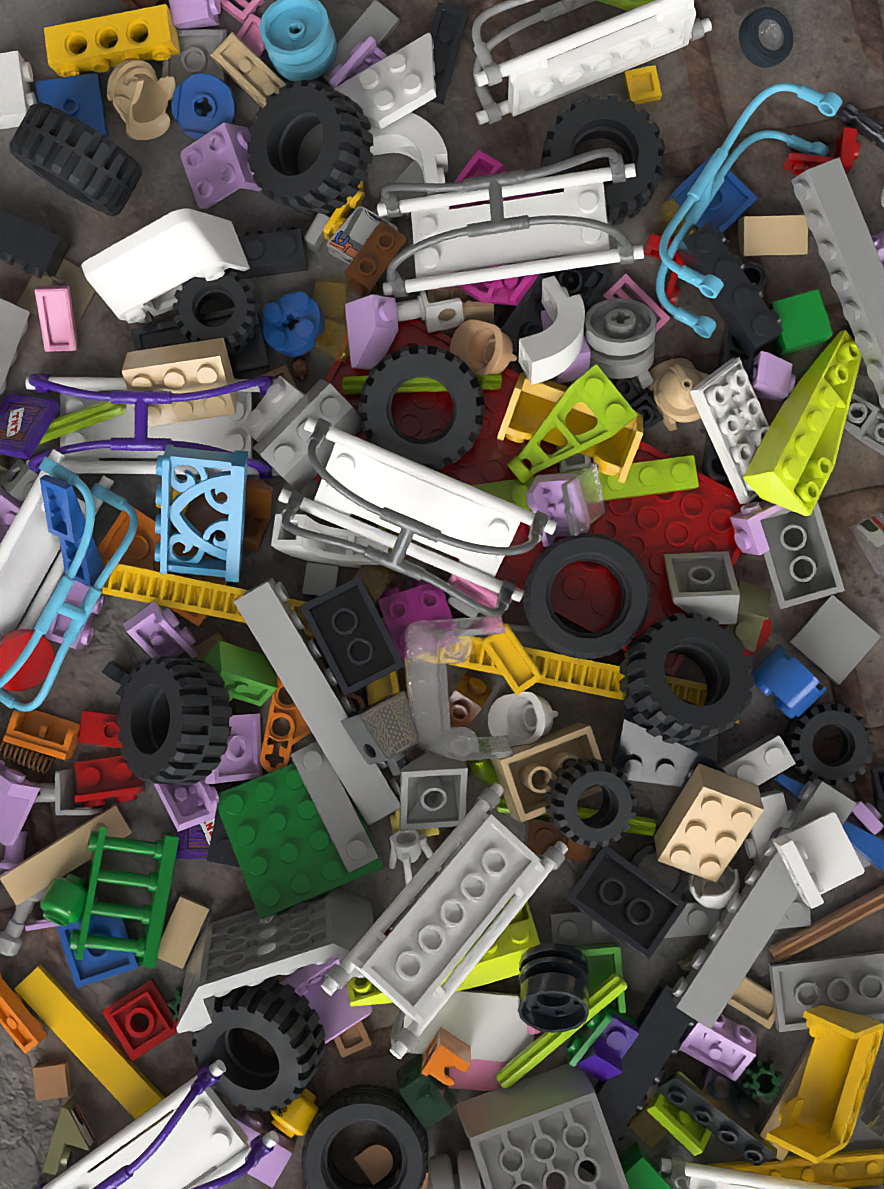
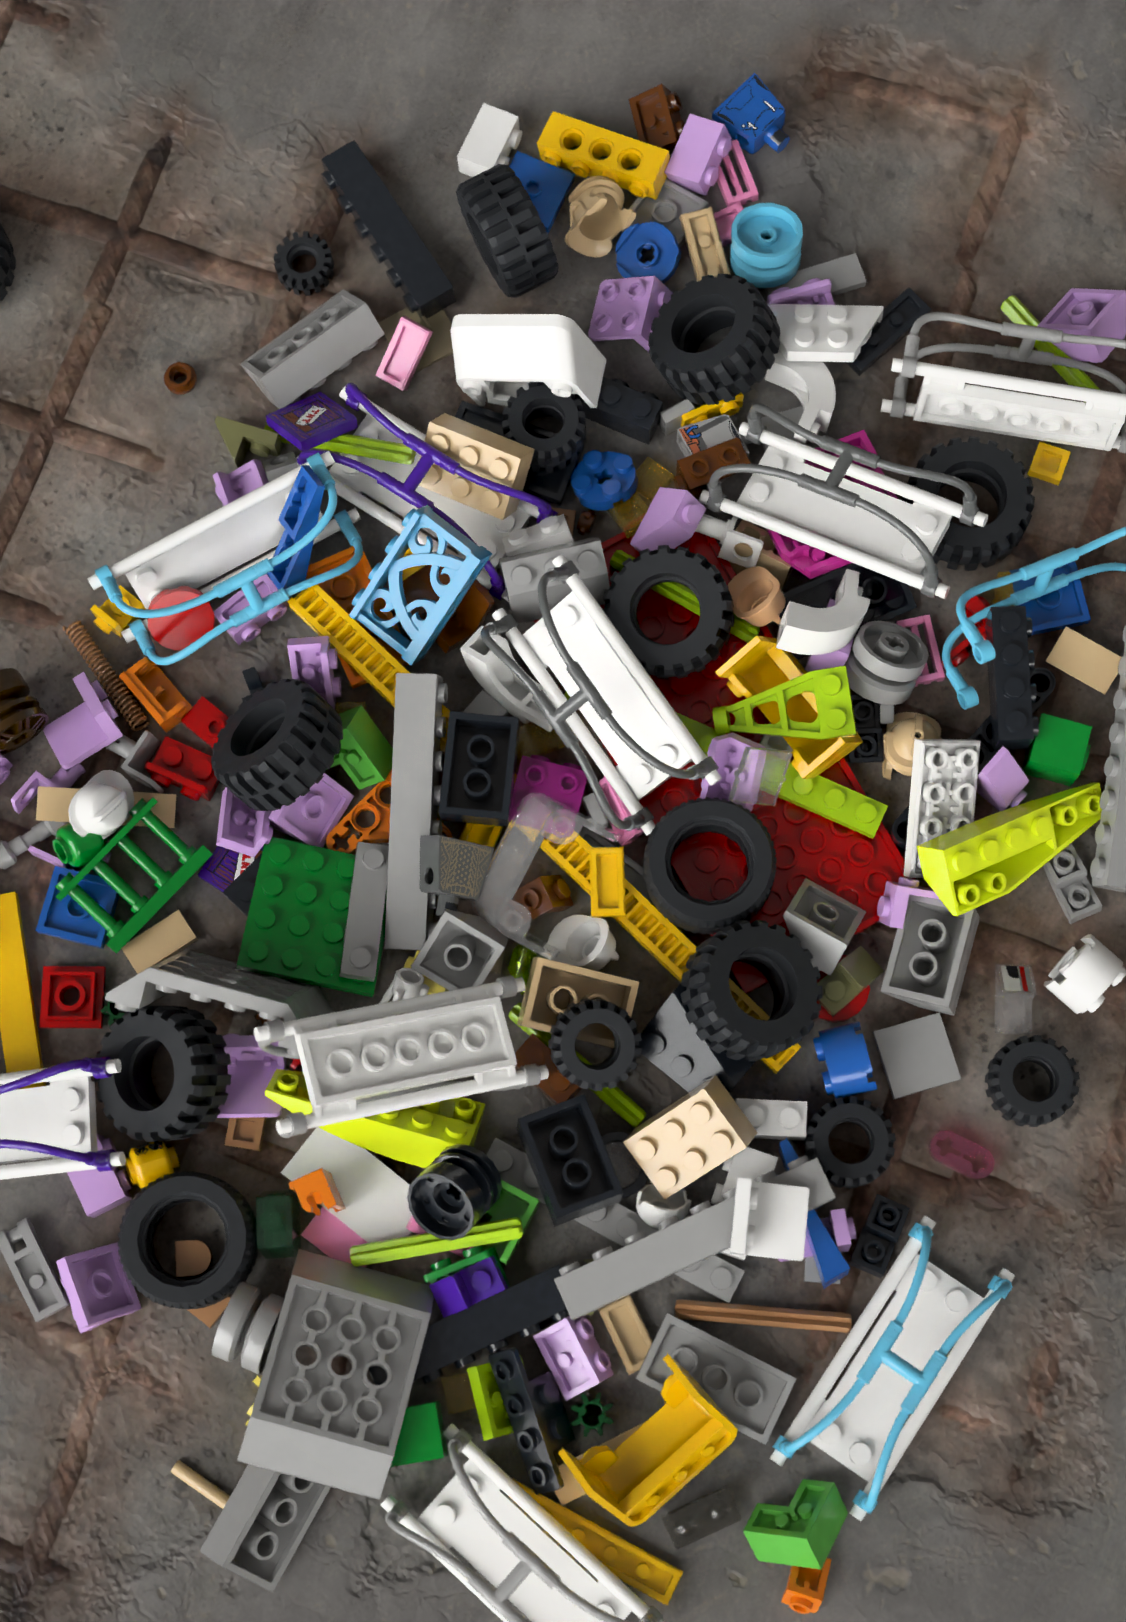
camera: 35 degrees right, 10 degrees down
(62, 860) = (101, 804): none -> white piece

